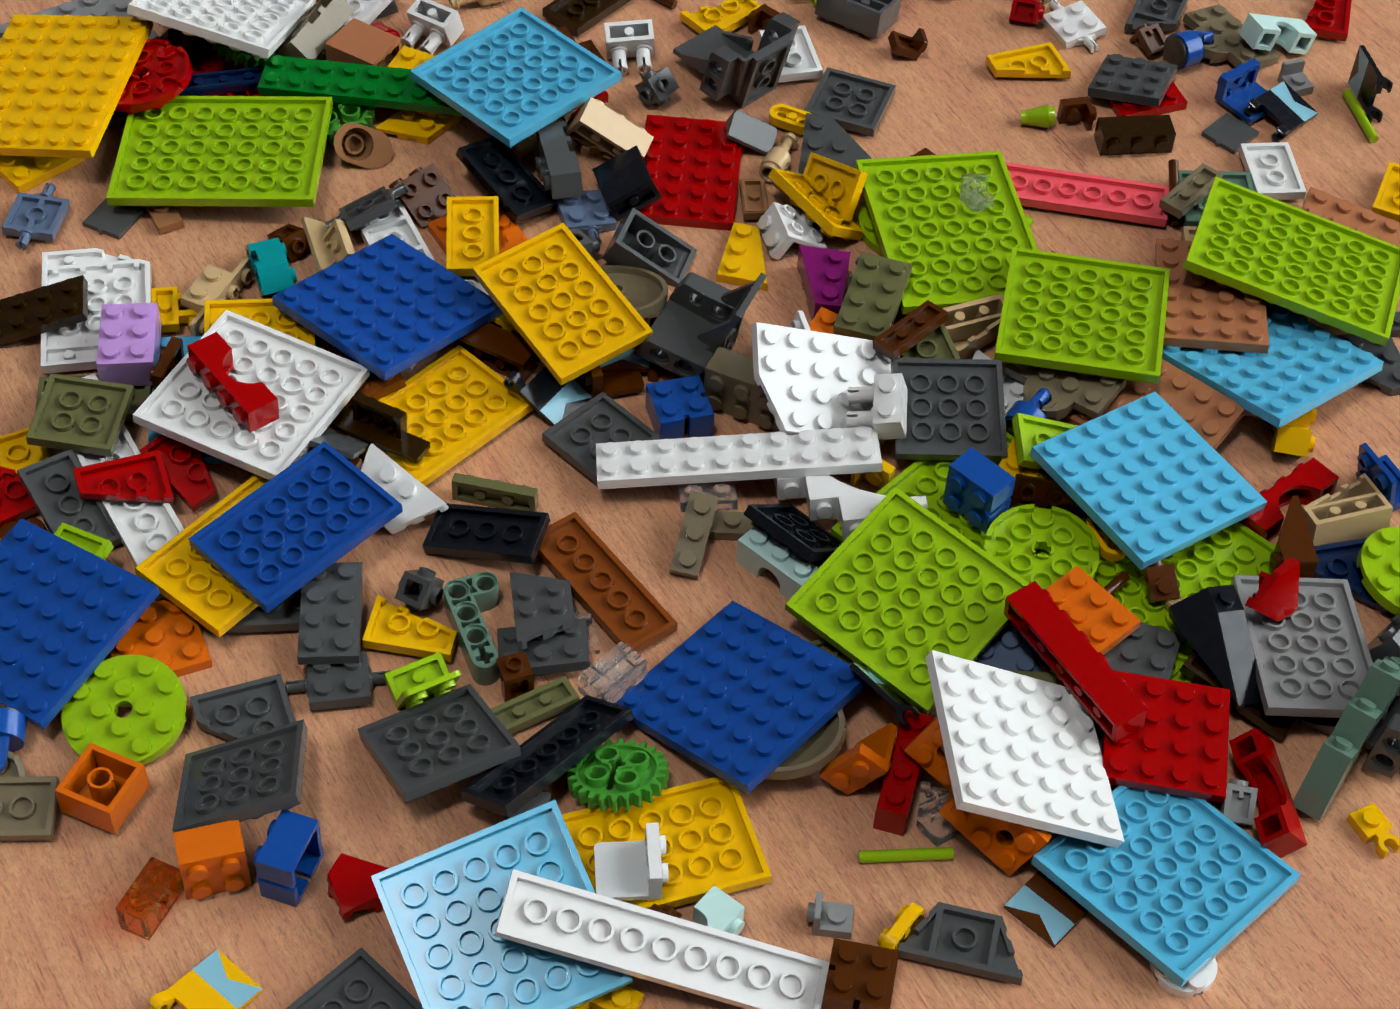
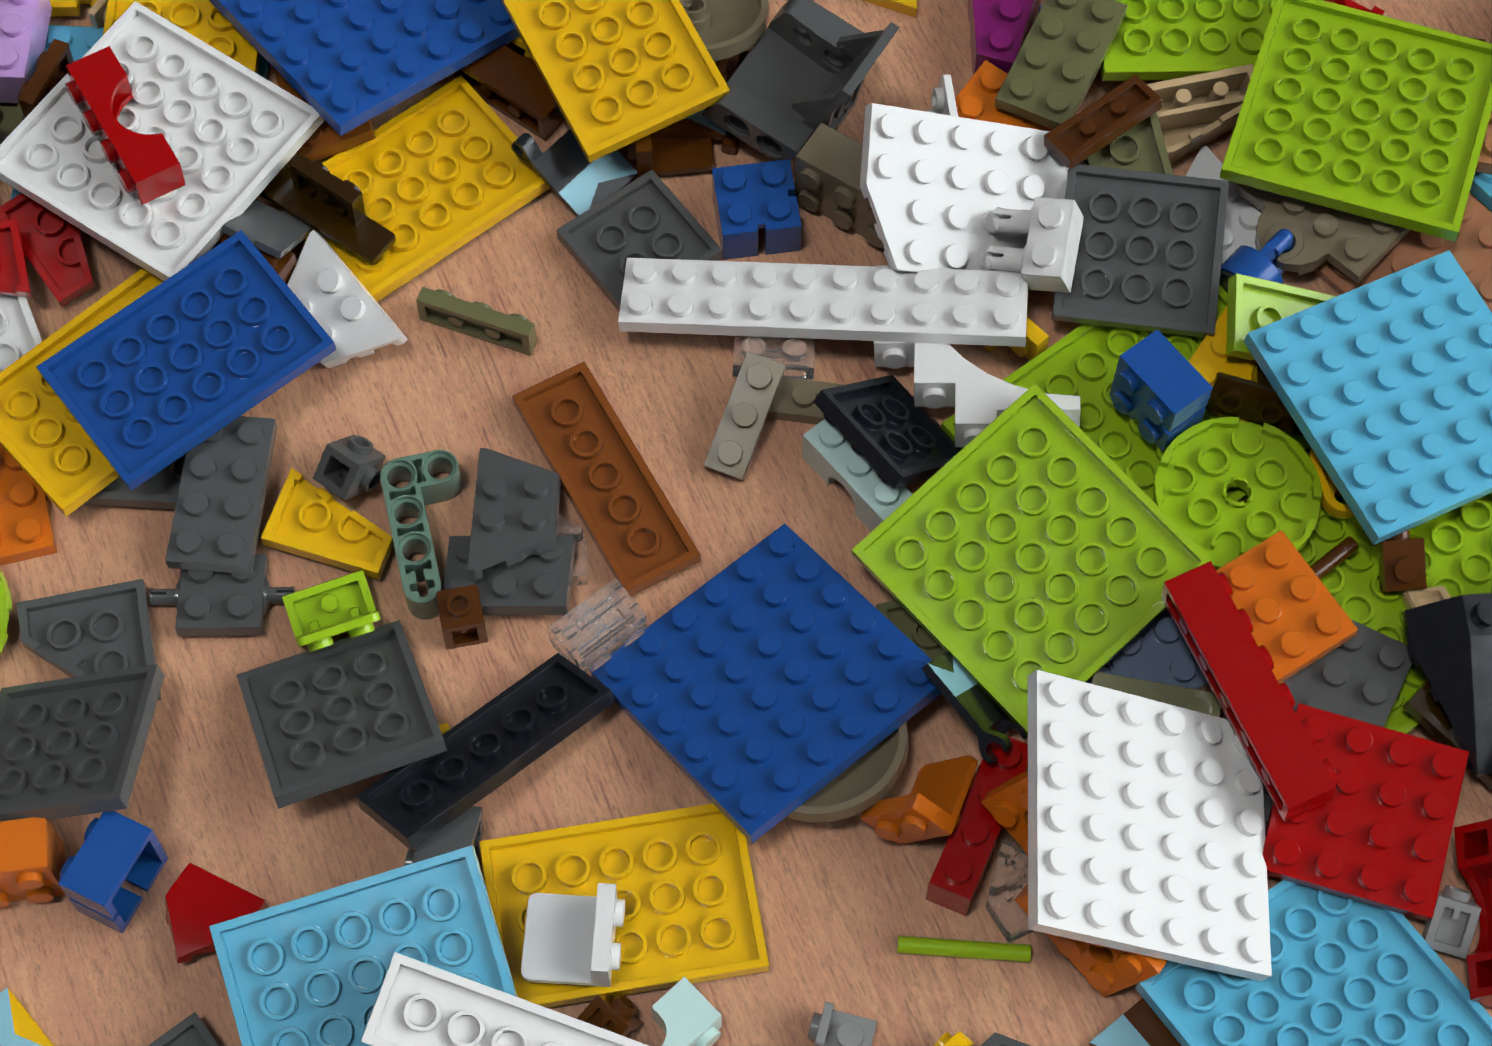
camera: 10 degrees right, 15 degrees up
(487, 533) = (455, 386): black plate -> none
(536, 705) = (481, 664): olive plate -> none
(639, 777) = (582, 789): bright green gear -> none

